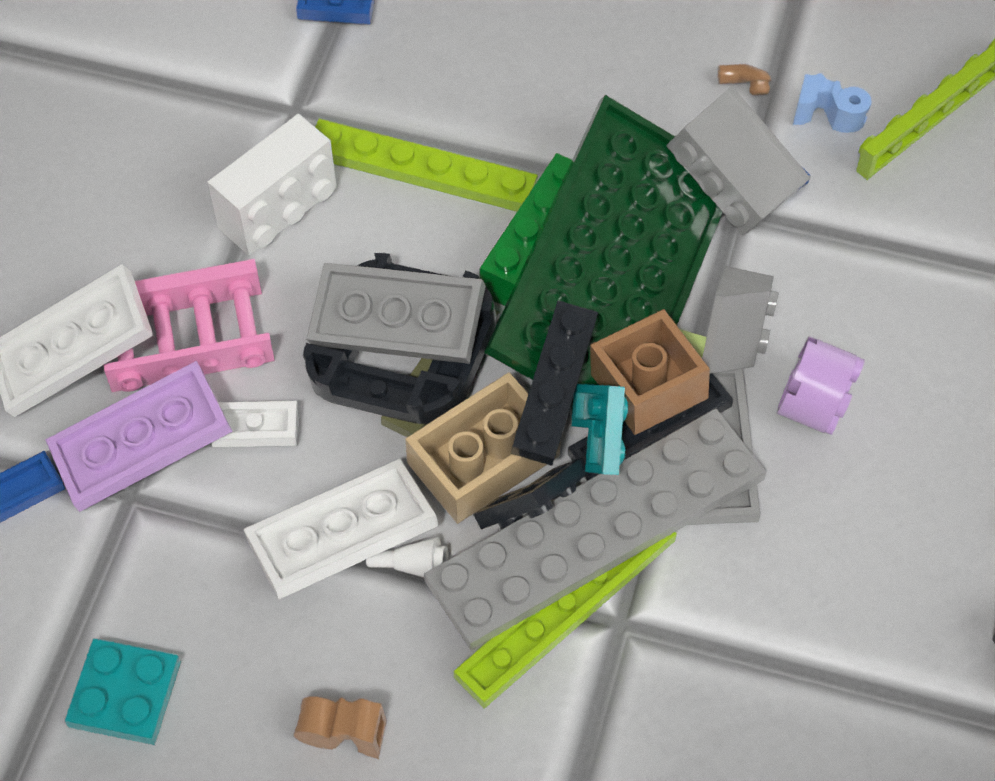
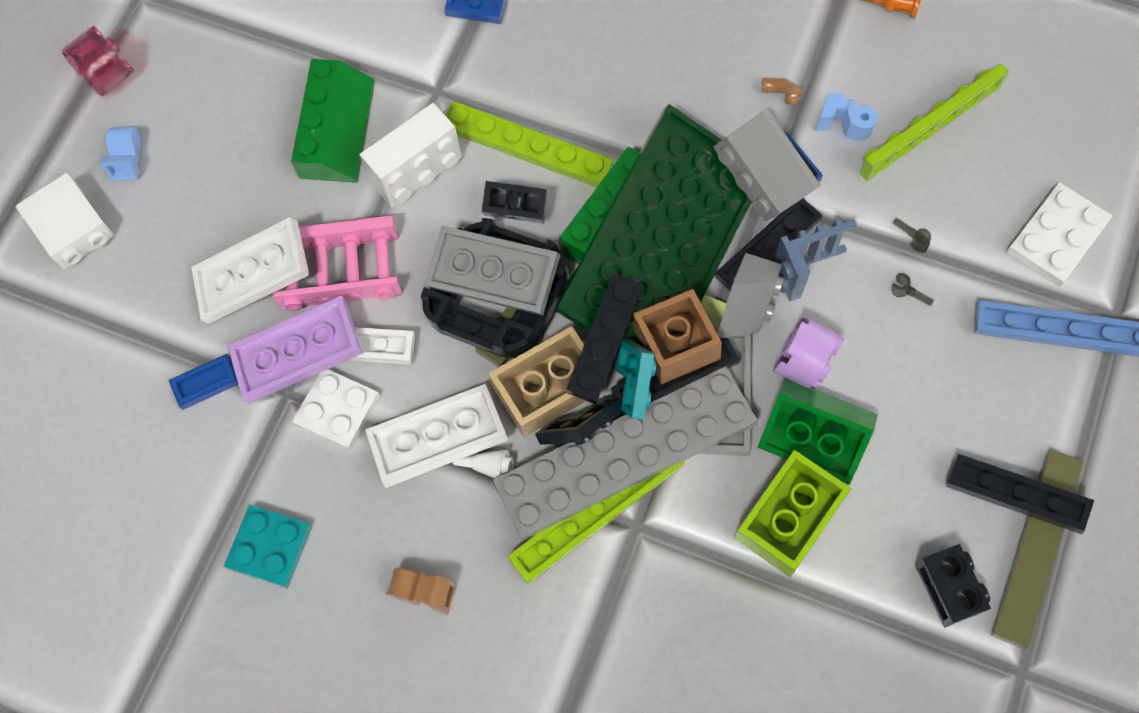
camera: 10 degrees right, 10 degrees up
(161, 155) = (332, 122): none -> green slope
(200, 509) = (336, 409): none -> white plate
(415, 232) = (514, 202): none -> black brick
(759, 253) = (765, 244): none -> black tile
(792, 278) = (792, 254): none -> sand blue plate
(824, 583) = (792, 513): none -> lime brick
(844, 482) = (818, 428): none -> green slope
(932, 303) = (909, 290): none -> clear smoke hand
(945, 240) = (920, 237): none -> clear smoke hand

